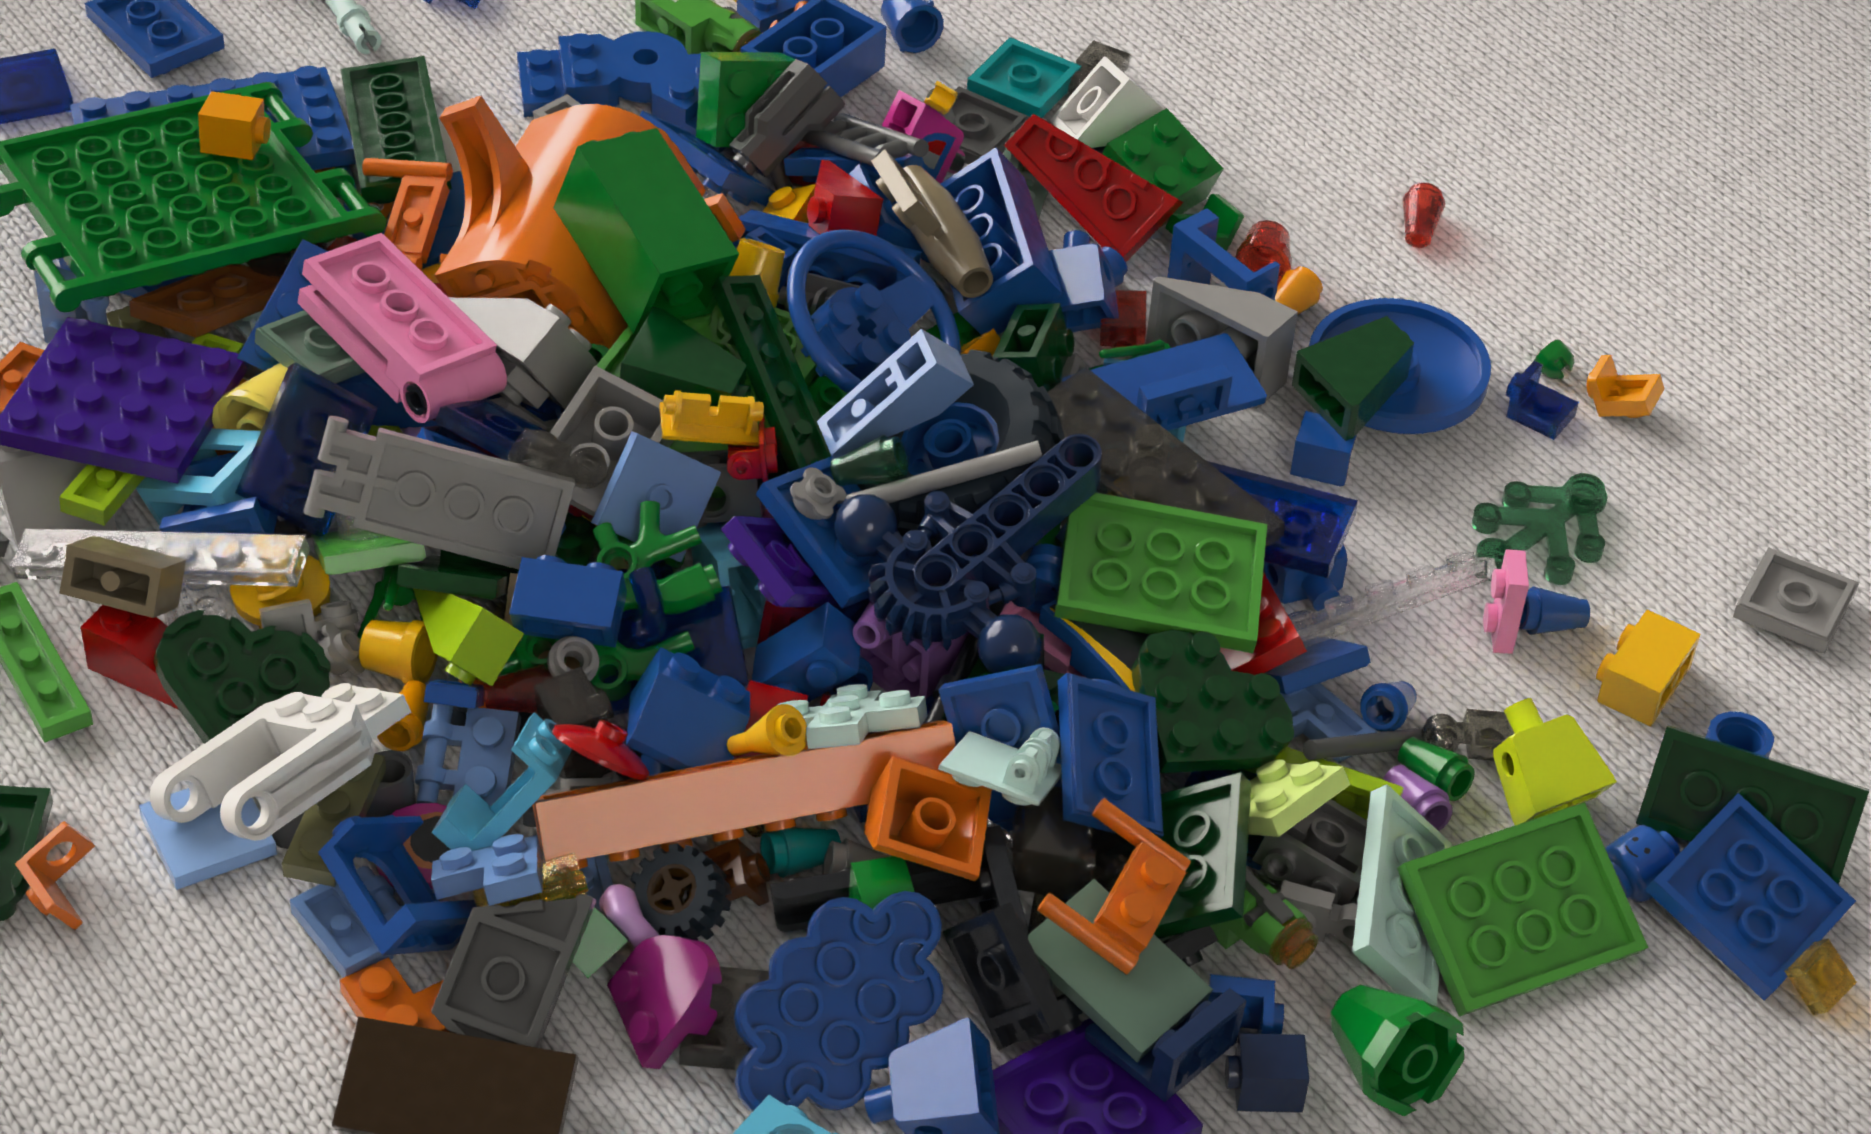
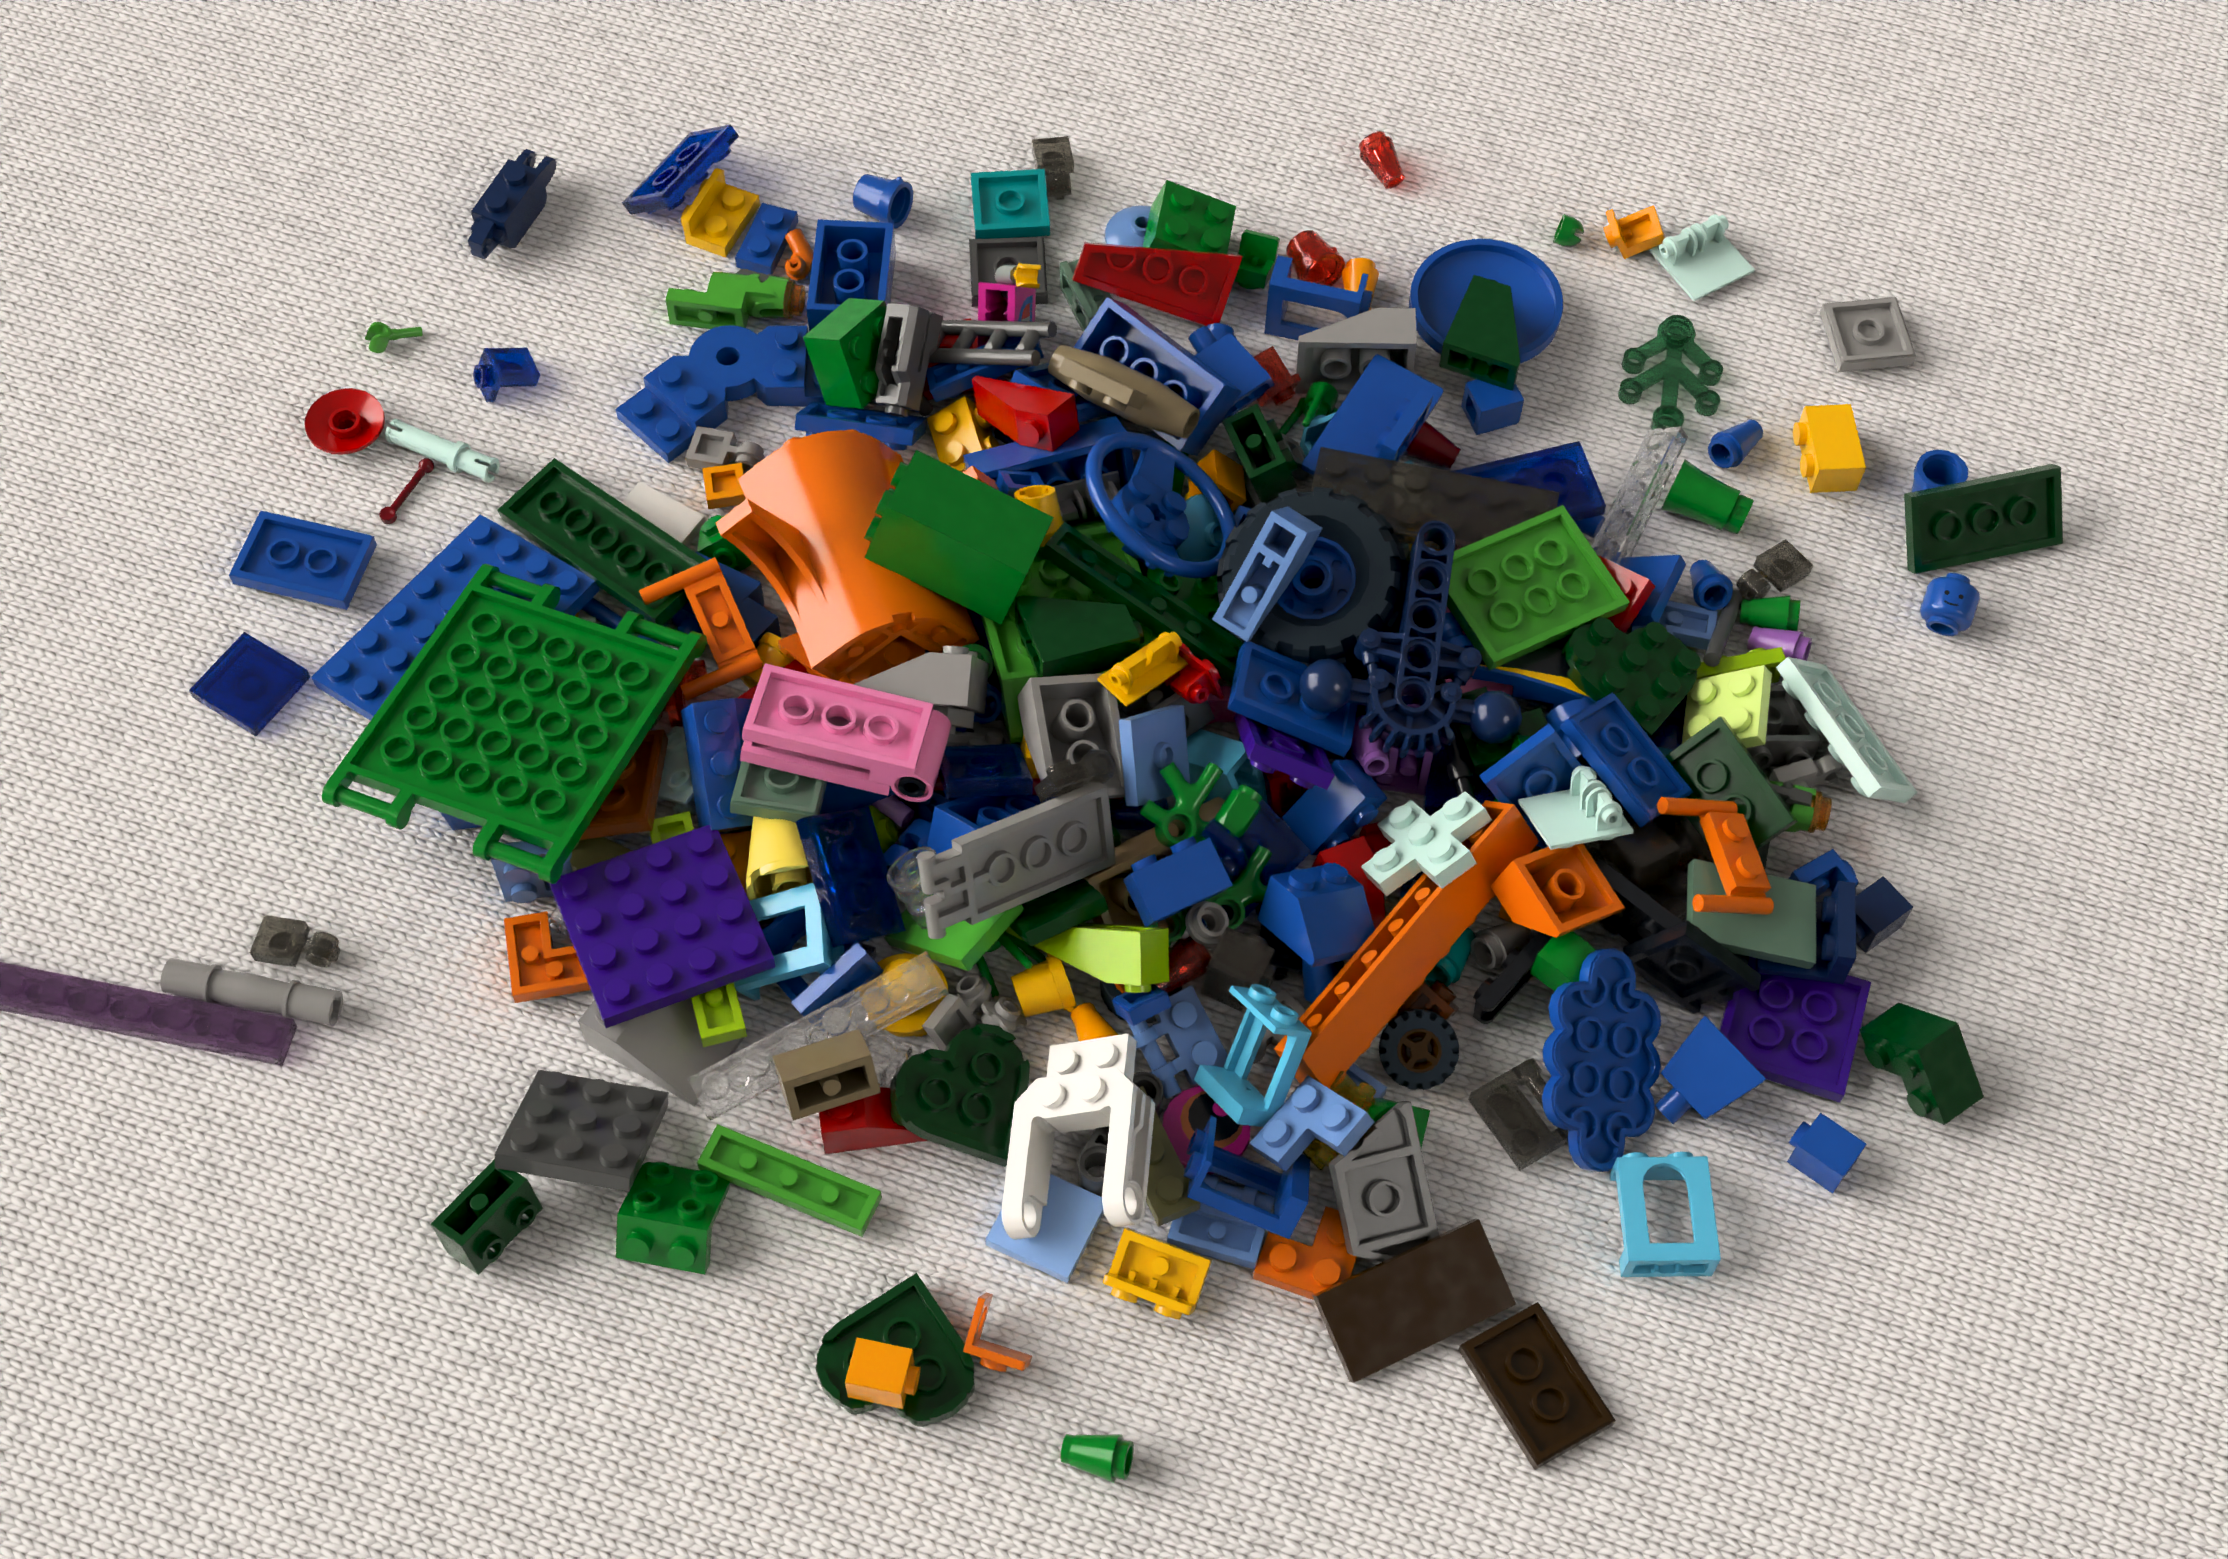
camera: 35 degrees left, 15 degrees up
(47, 1029) = (1099, 1454): none -> green cone
(233, 125) = (521, 629): light orange brick -> none
(251, 923) = (1157, 1273): none -> yellow bracket
(259, 34) = (388, 514): none -> dark red hinge
(603, 746) = (1307, 983): red dish -> none
(623, 910) = (1402, 1088): lavender arm -> none
(665, 995) = (1480, 1130): magenta slope -> none
(776, 733) = (1414, 891): yellow cone -> none
(816, 494) = (1274, 683): light grey plate -> none
(872, 463) = (1289, 633): clear green cone -> none
(956, 473) = (1351, 611): light grey bar -> none
(1104, 106) = (1103, 201): white slope -> none
(1223, 444) = (1433, 447): none -> dark red cone
(1397, 1046) = (1927, 842): green cone -> none
(1462, 634) = (1707, 499): none -> green plant
(1509, 592) = (1721, 451): bright pink plate -> none
(1521, 908) = (1919, 689): bright green plate -> none
(1538, 405) = (1587, 275): clear blue bracket -> none
(1547, 764) = (1844, 570): neon yellow torso -> none
(1677, 450) = (1702, 258): none -> light aqua hinge
(1750, 895) = (2033, 586): blue plate -> none
(1820, 976) = (2110, 616): clear yellow plate -> none

